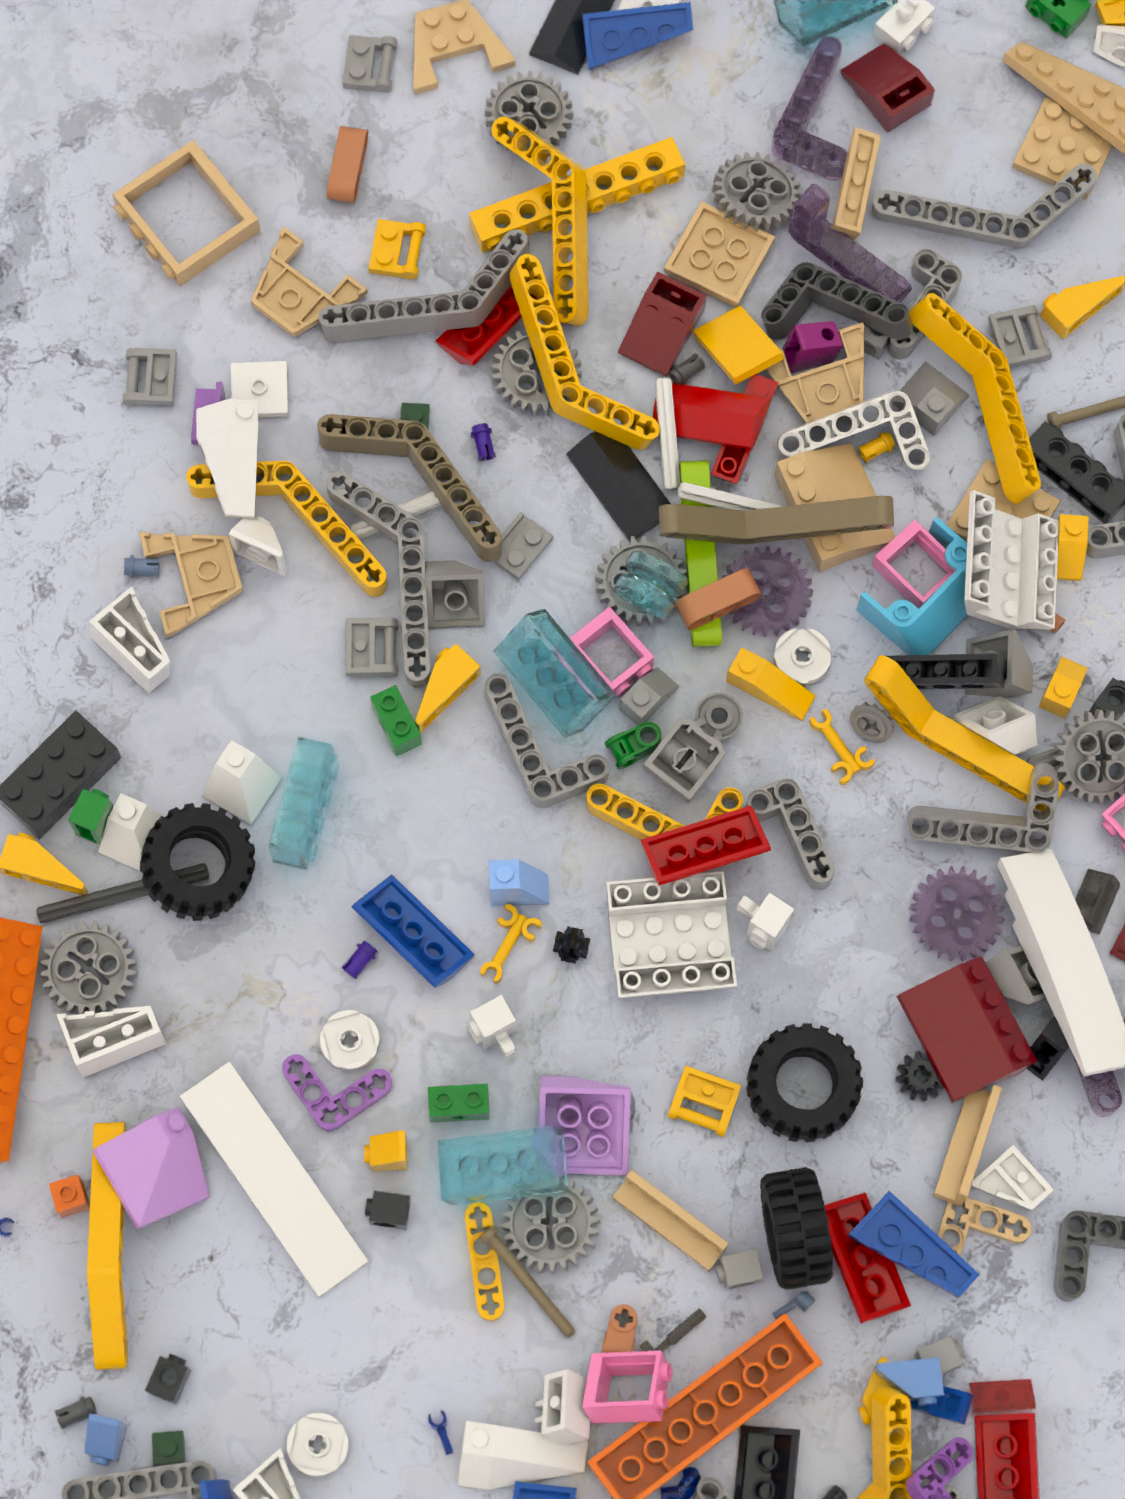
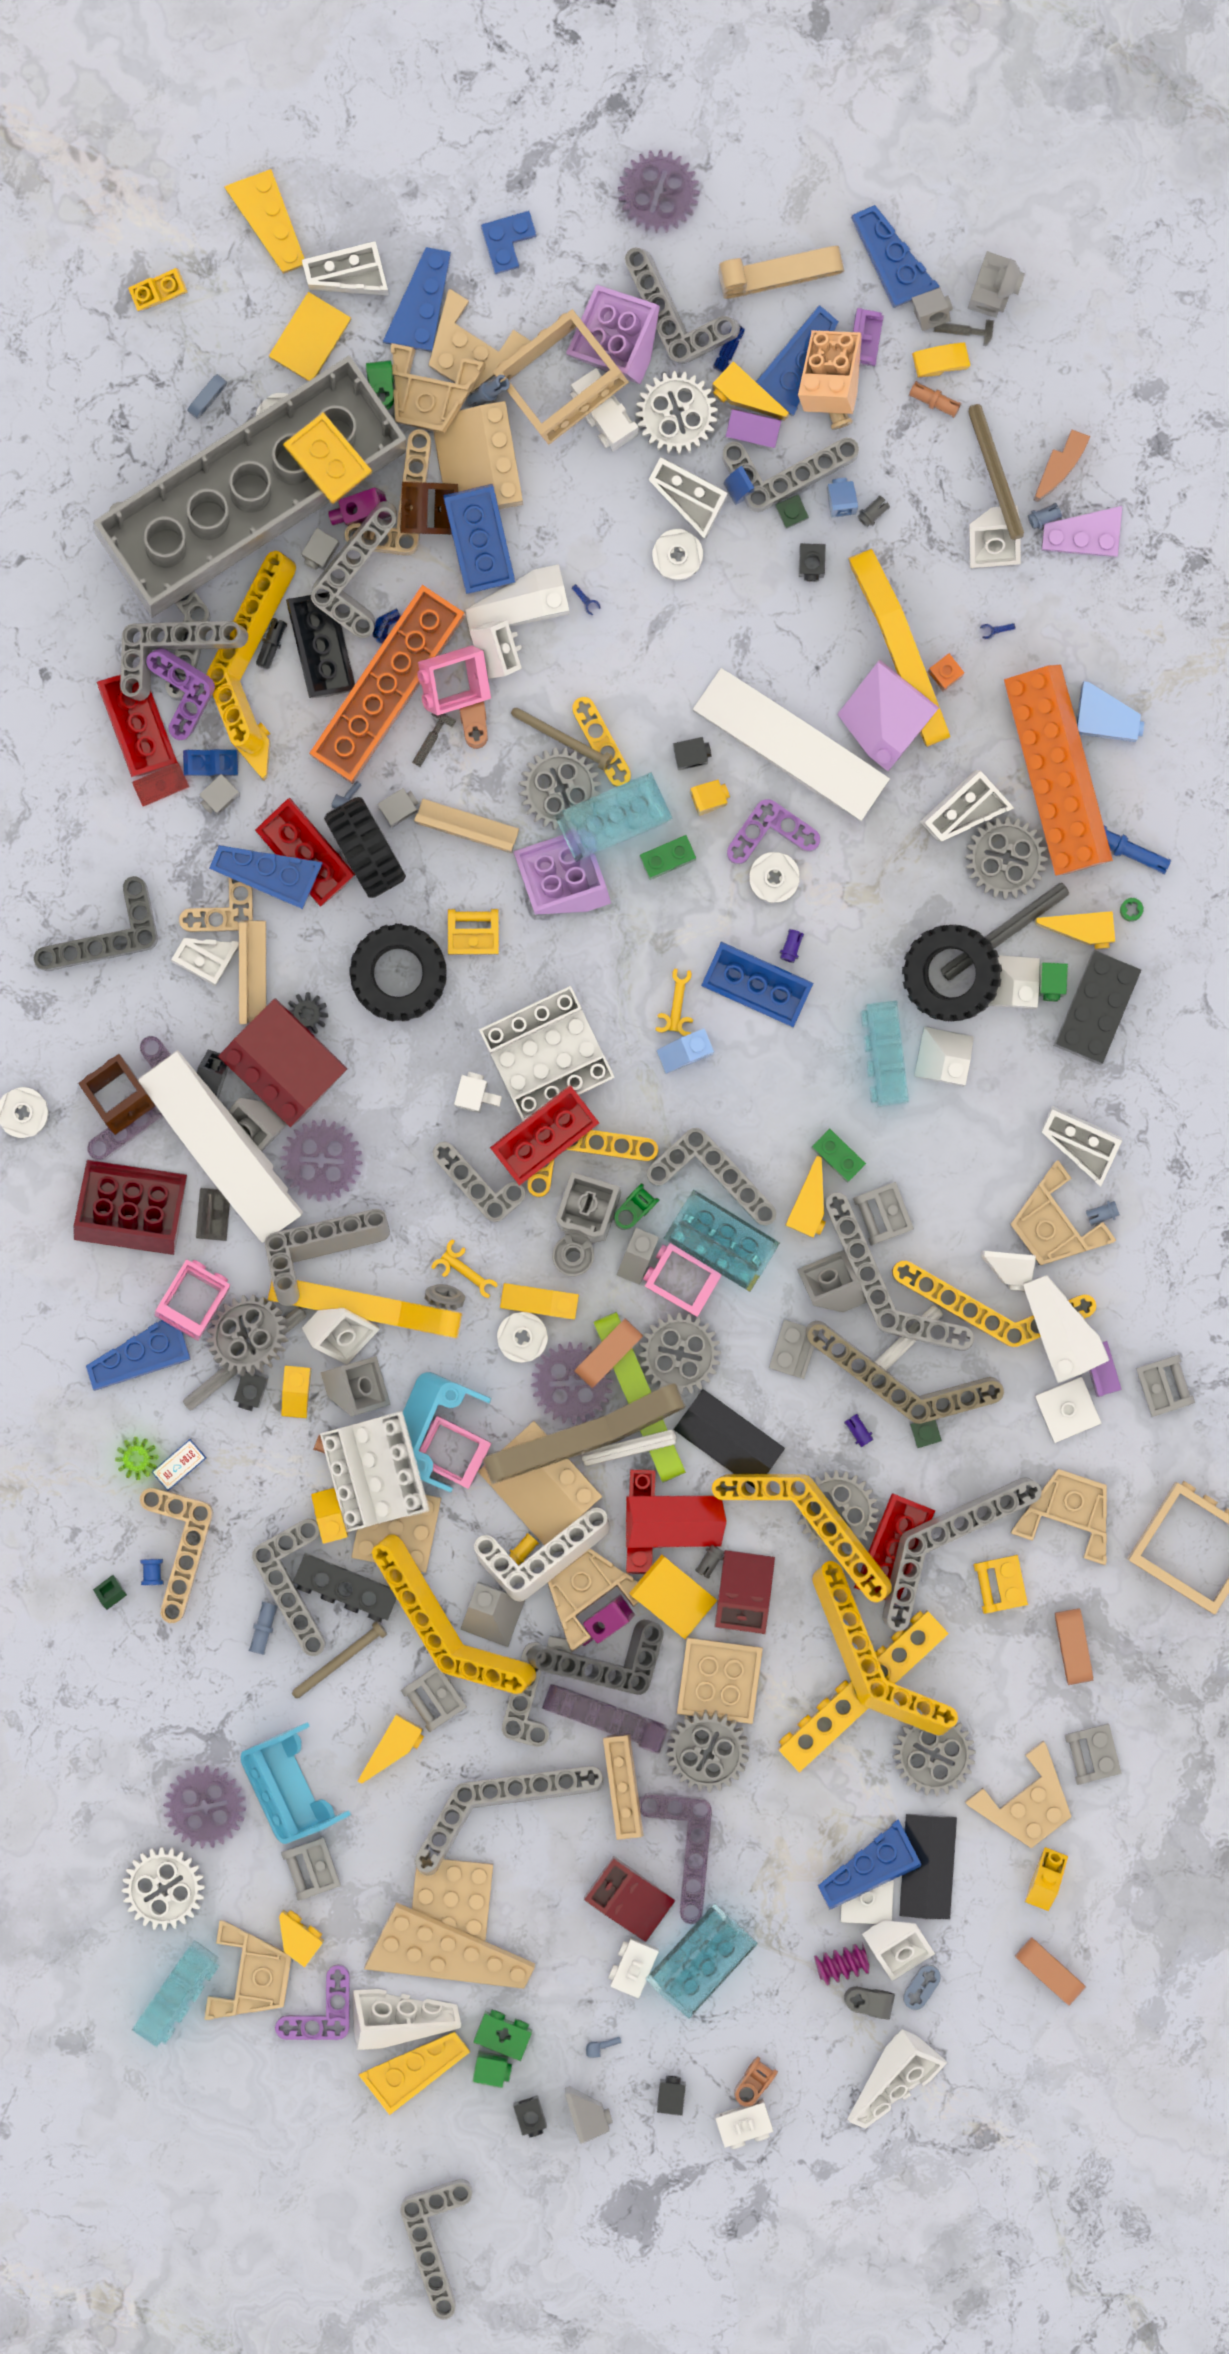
camera: 160 degrees right, 15 degrees up
(493, 1024) = (662, 928): white brick -> none
(571, 945) = (625, 1019): black gear -> none
(651, 584) = (667, 1340): clear light blue wheel -> none
(667, 433) = (704, 1492): white axle -> none
(914, 1378) = (233, 766): medium blue slope -> none
(953, 670) = (399, 1358): black brick -> none

